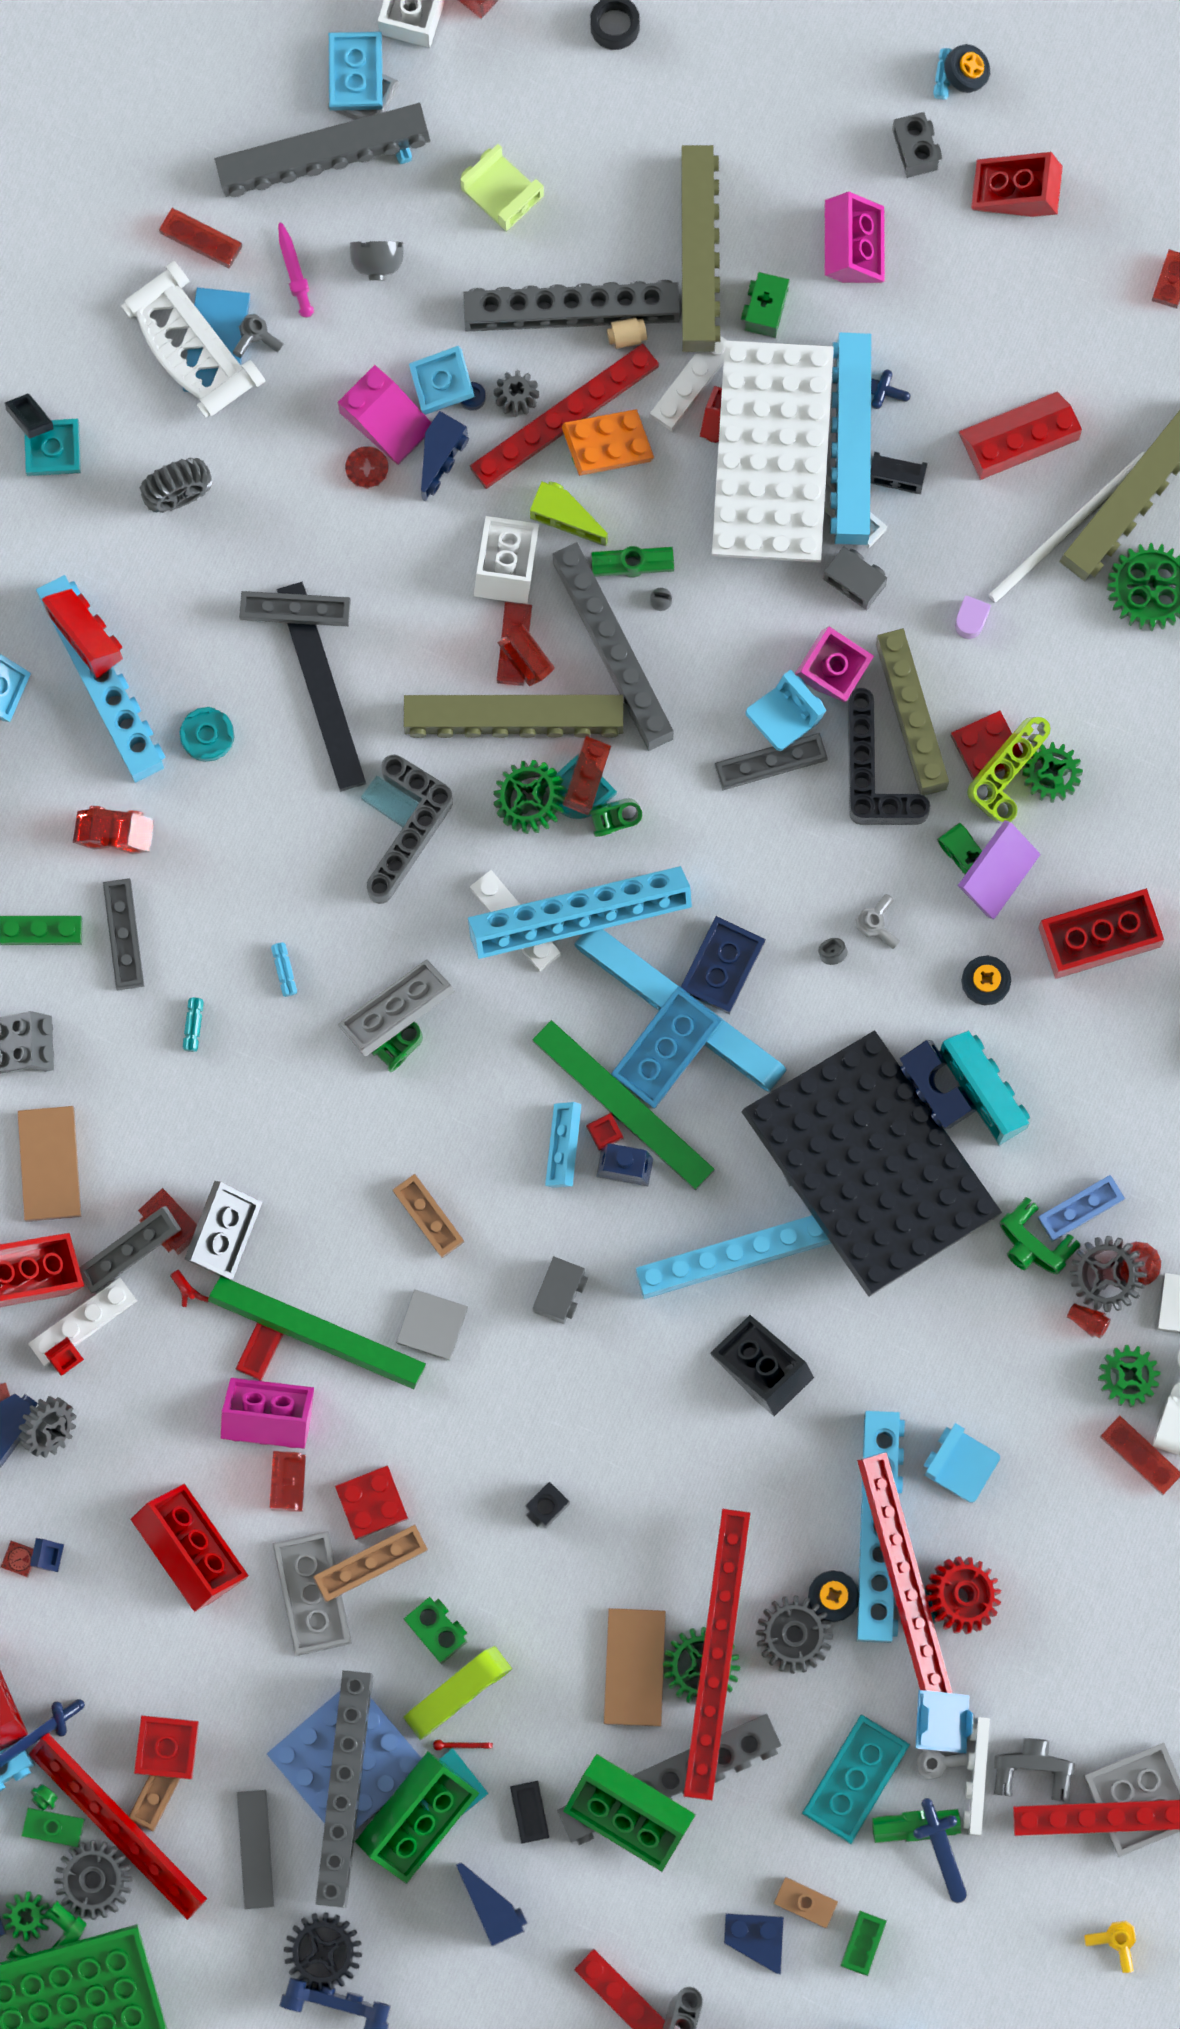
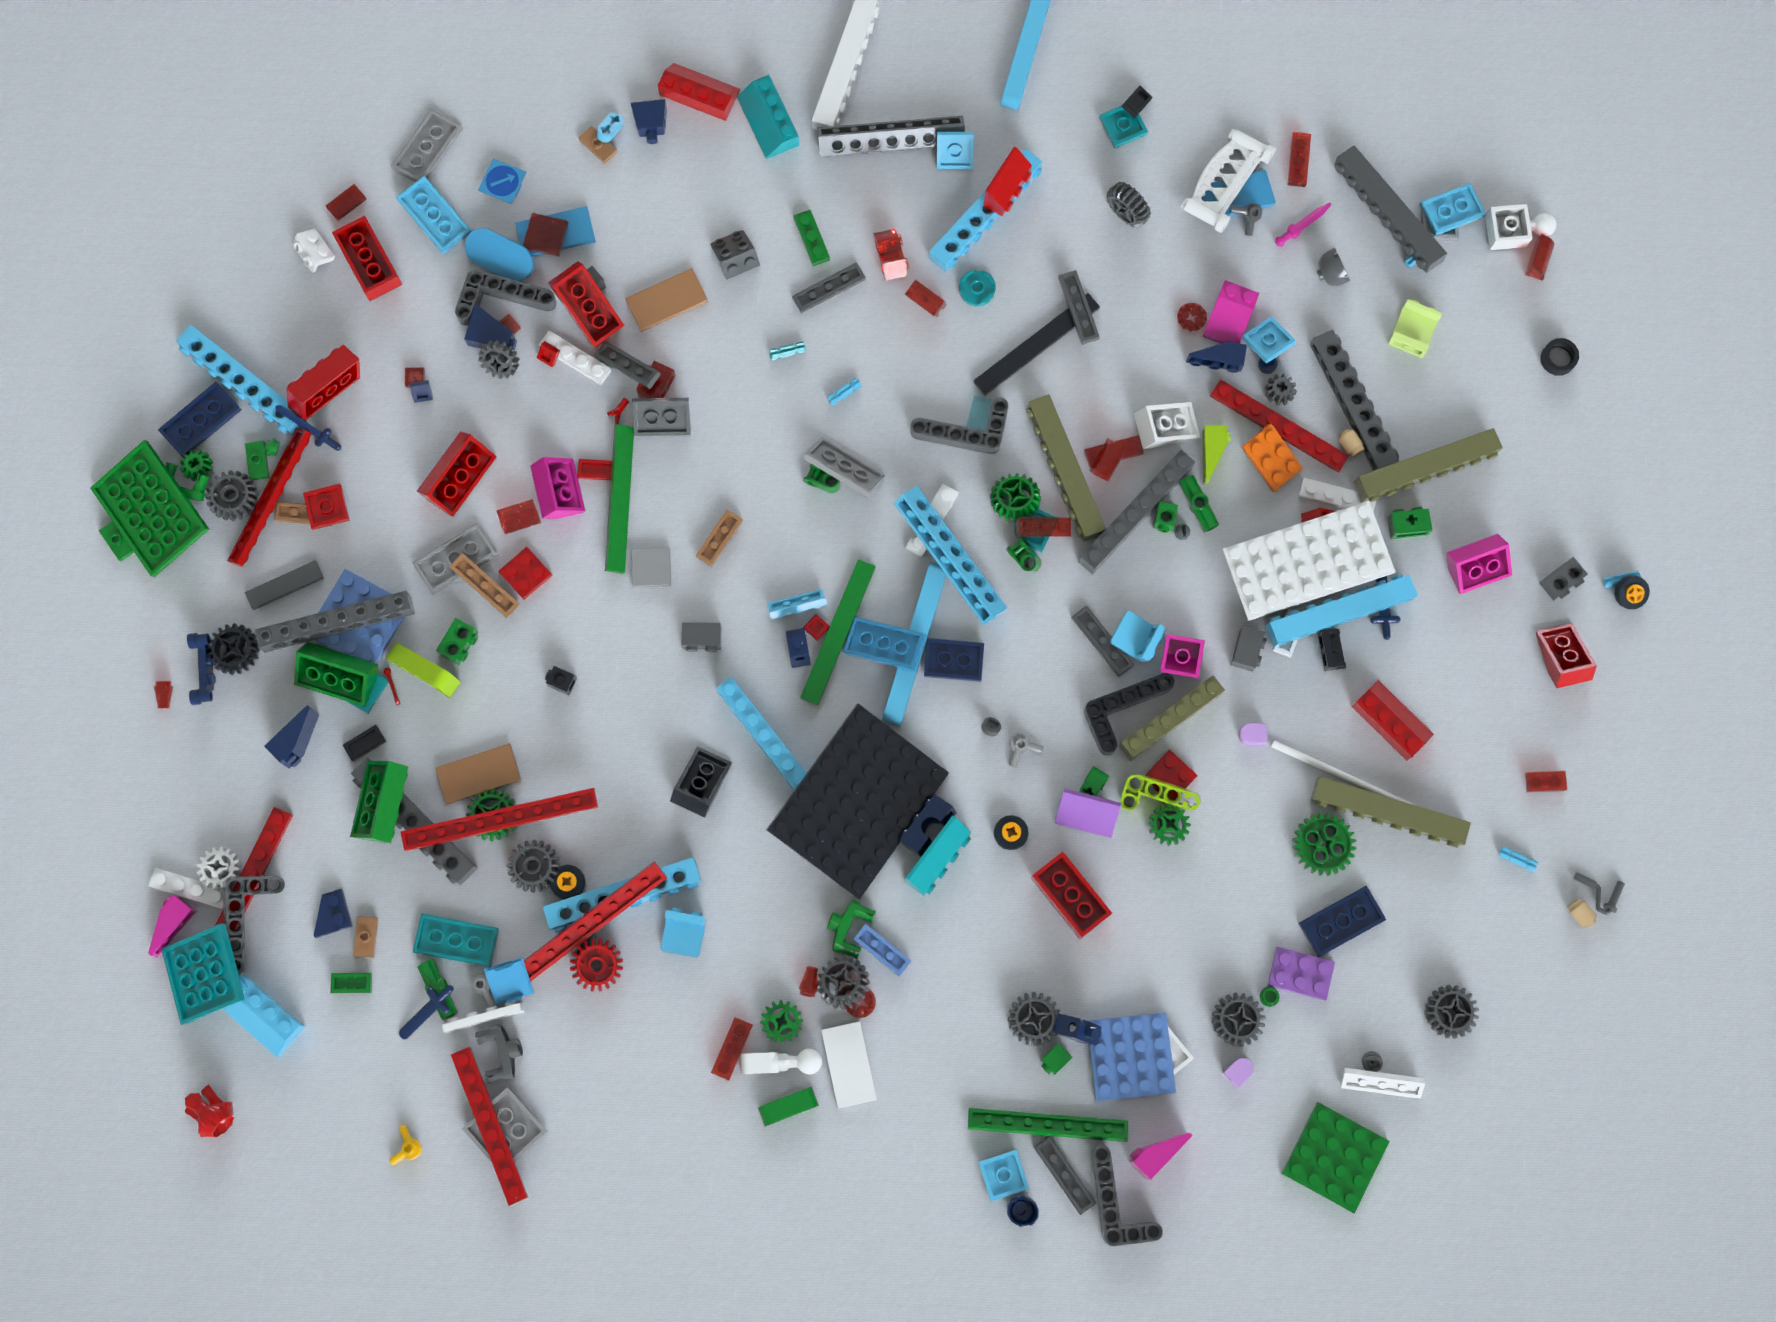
camera: 65 degrees right, 0 degrees up
(197, 808) = (925, 298): none -> clear red hinge
(629, 601) = (1165, 509): none -> green brick

